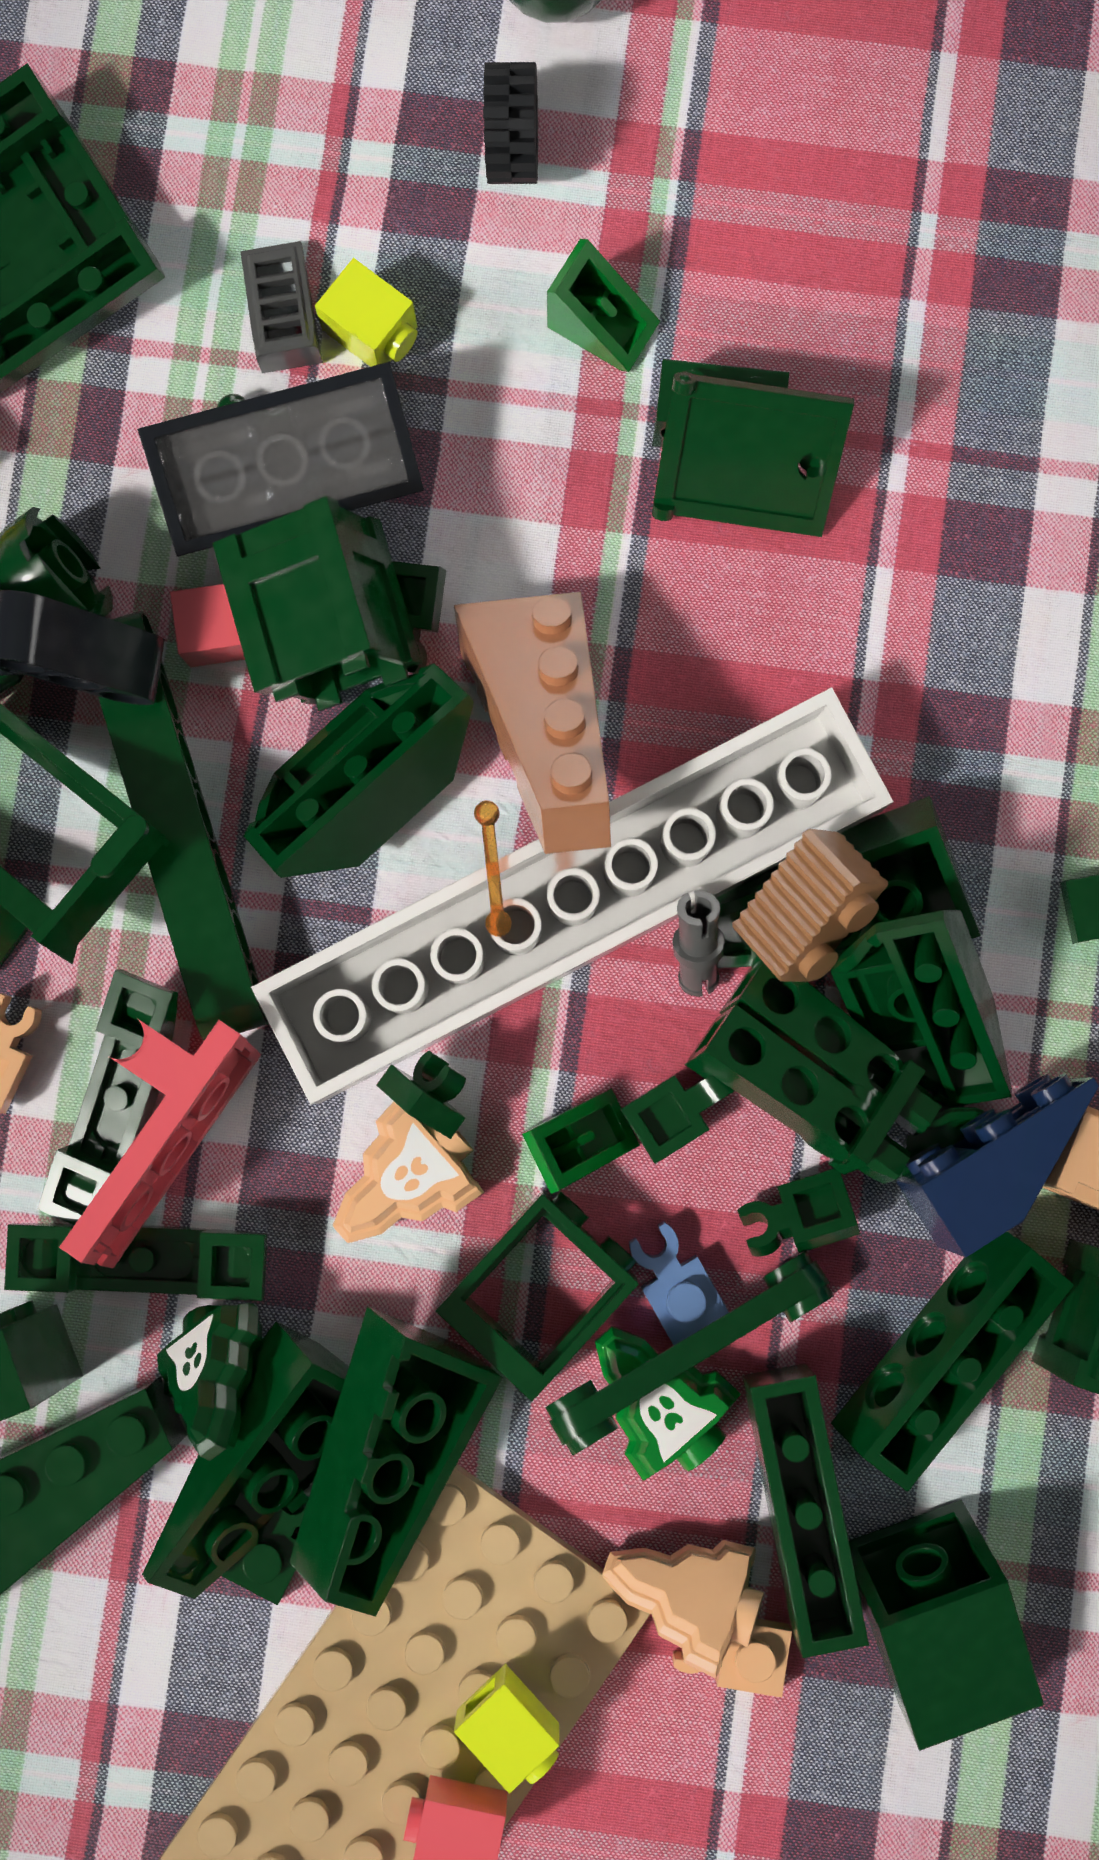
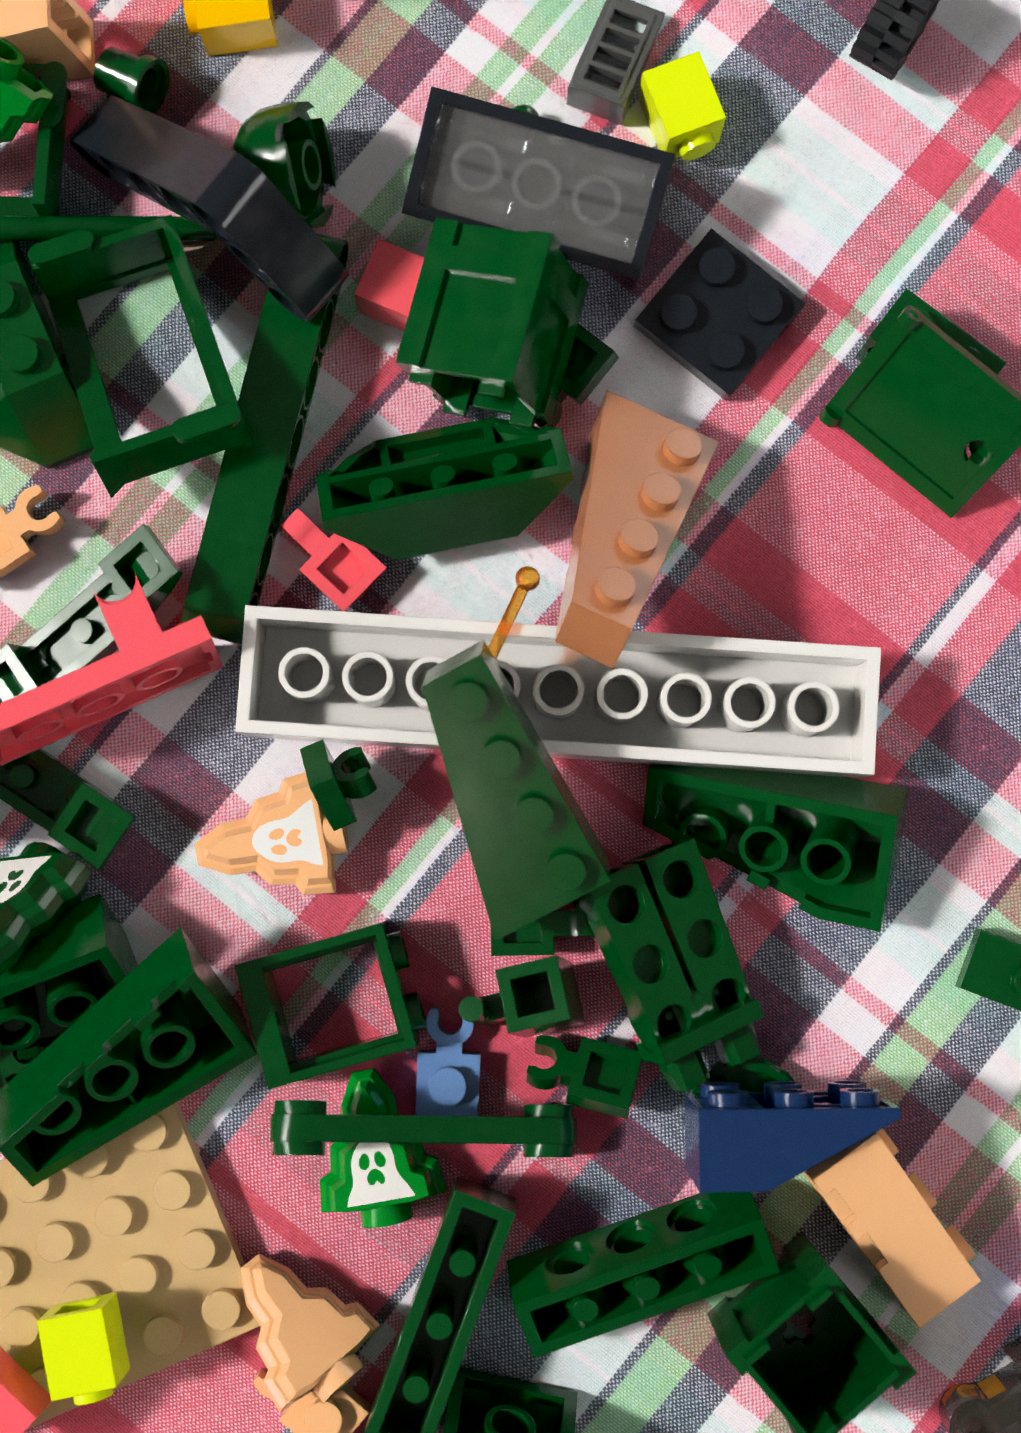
camera: 30 degrees right, 0 degrees up
(308, 902) = (336, 564): none -> coral plate
(510, 479) = (719, 314): none -> black plate
(580, 1140) = (437, 899): green slope -> none
(596, 1018) = (513, 804): none -> dark green wedge
(599, 309) = (879, 215): green slope -> none
(698, 943) = (639, 793): dark grey pin -> none
(714, 1180) = (531, 999): none -> dark green brick
(810, 906) = (750, 820): medium nougat brick -> none
(930, 1003) = (802, 960): dark green wedge -> none

